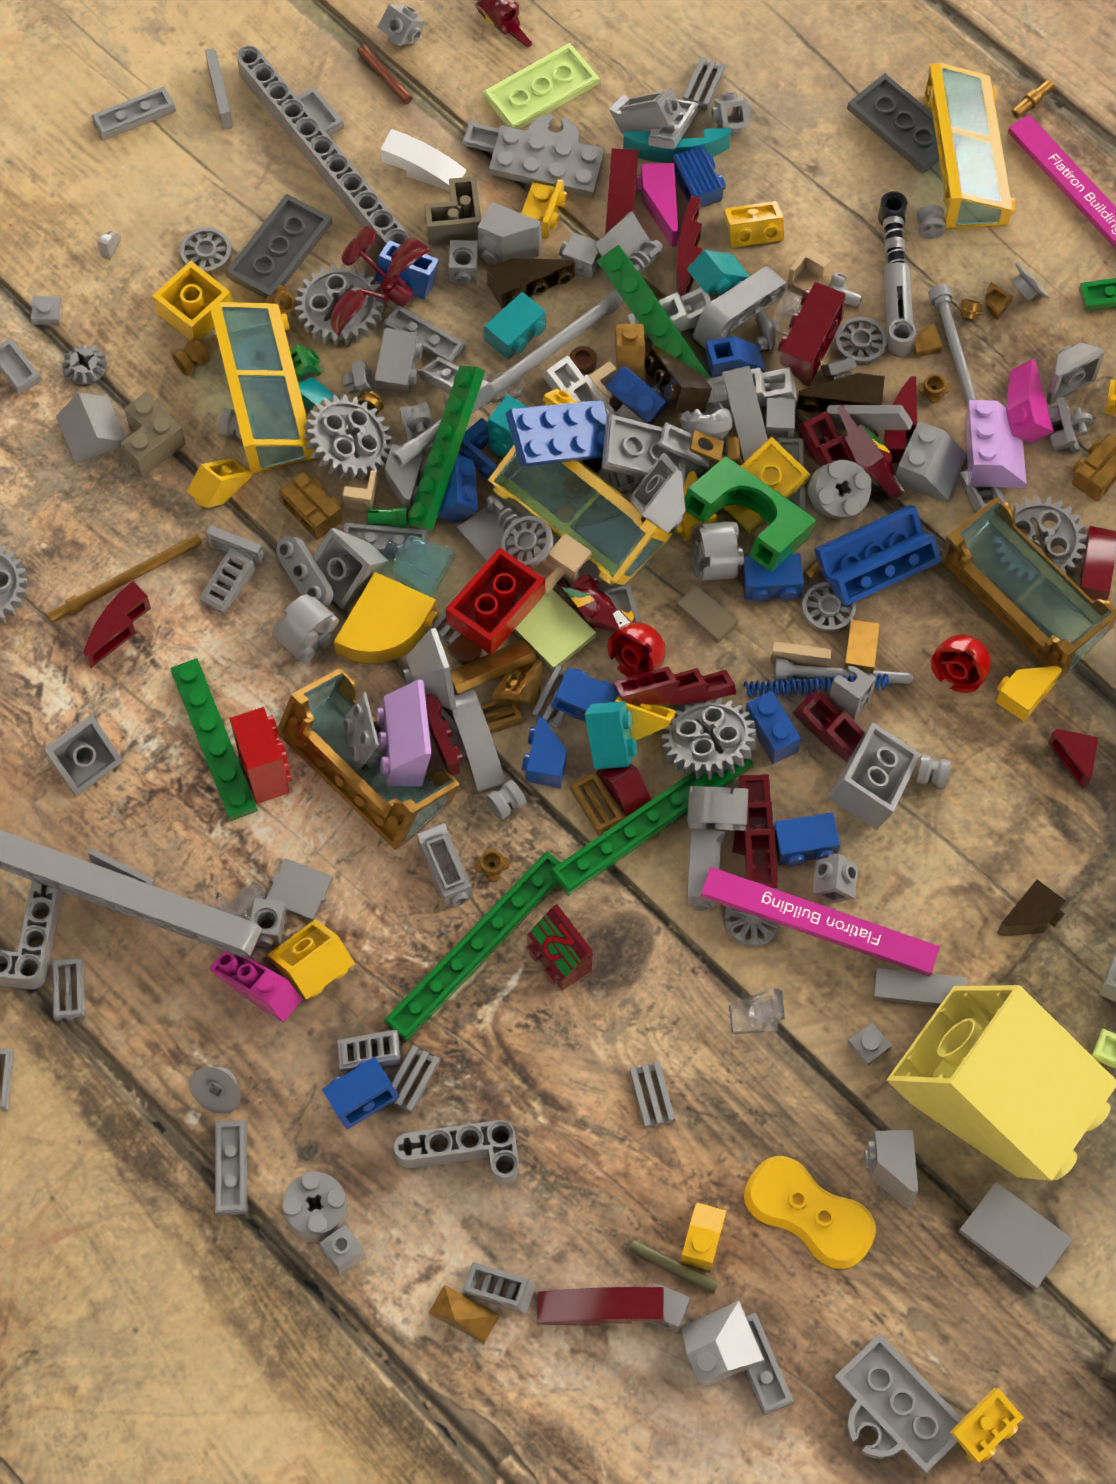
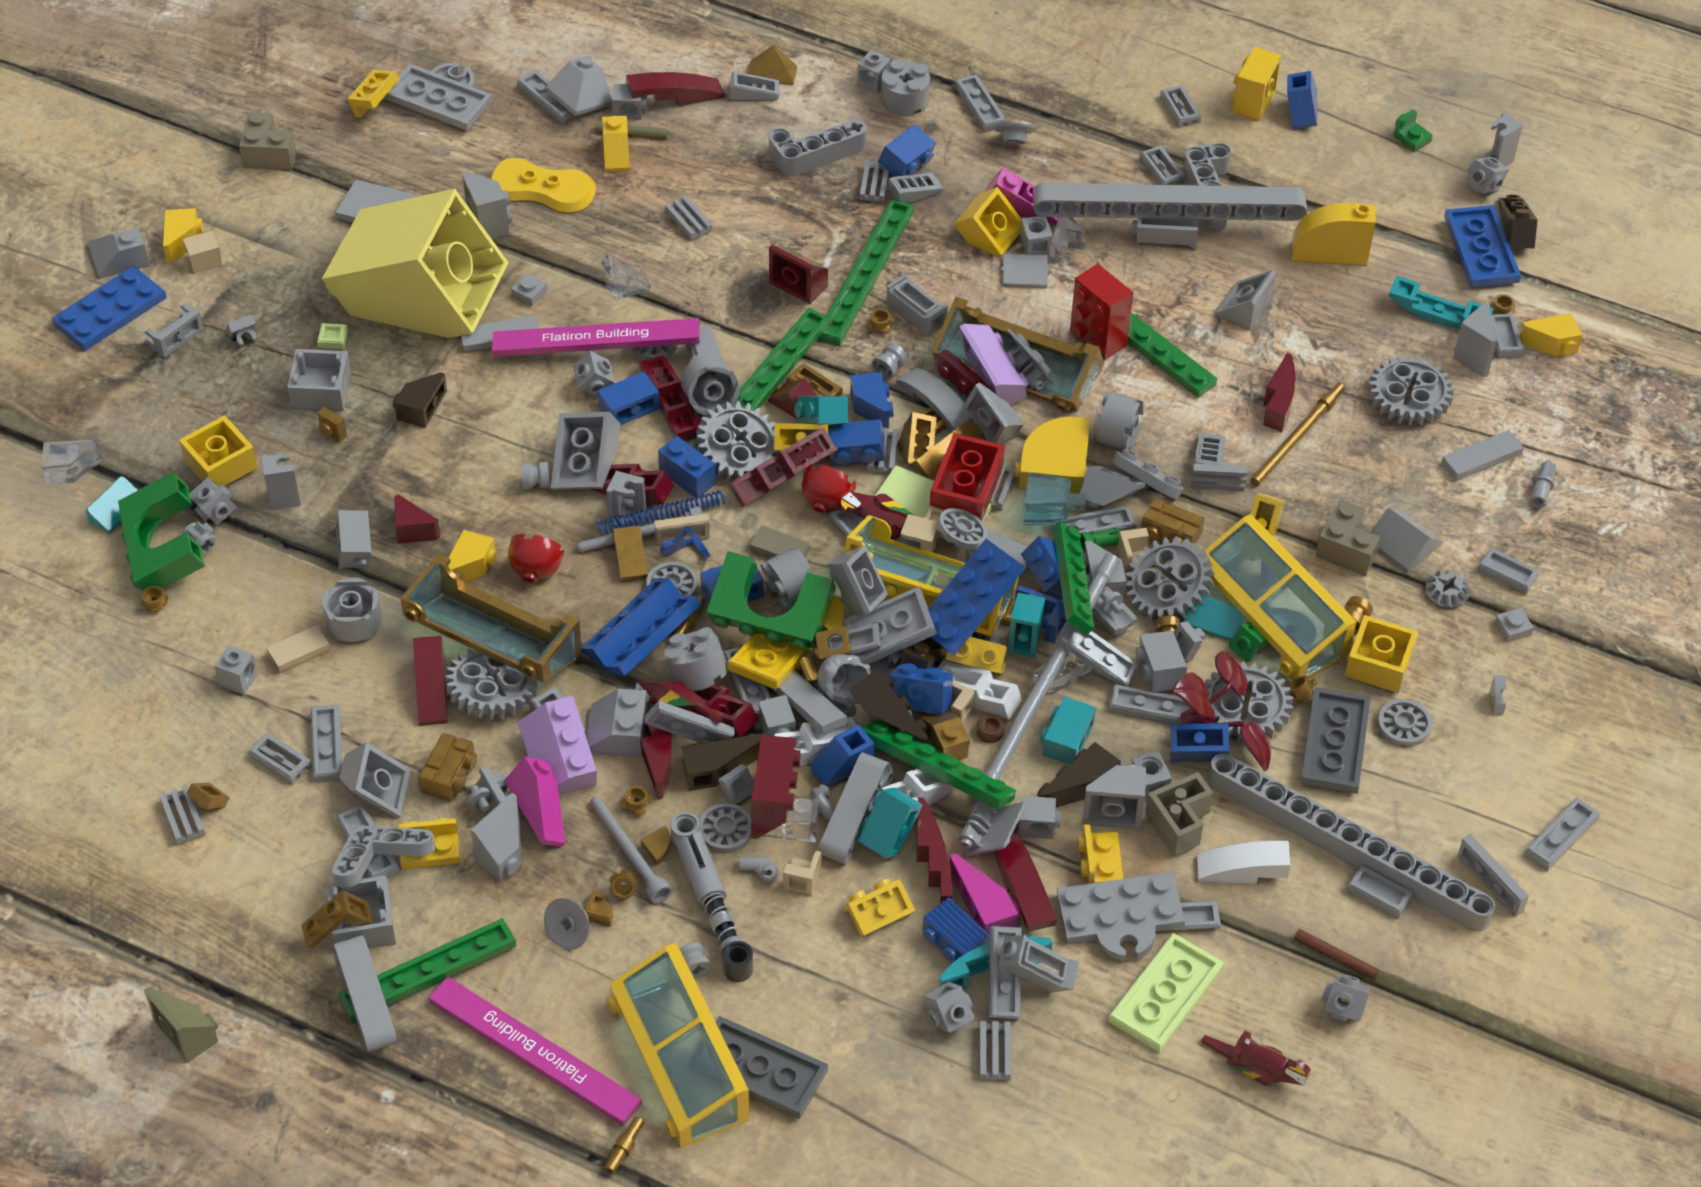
camera: 160 degrees right, 15 degrees down
(821, 642) = (670, 546): none -> blue piece

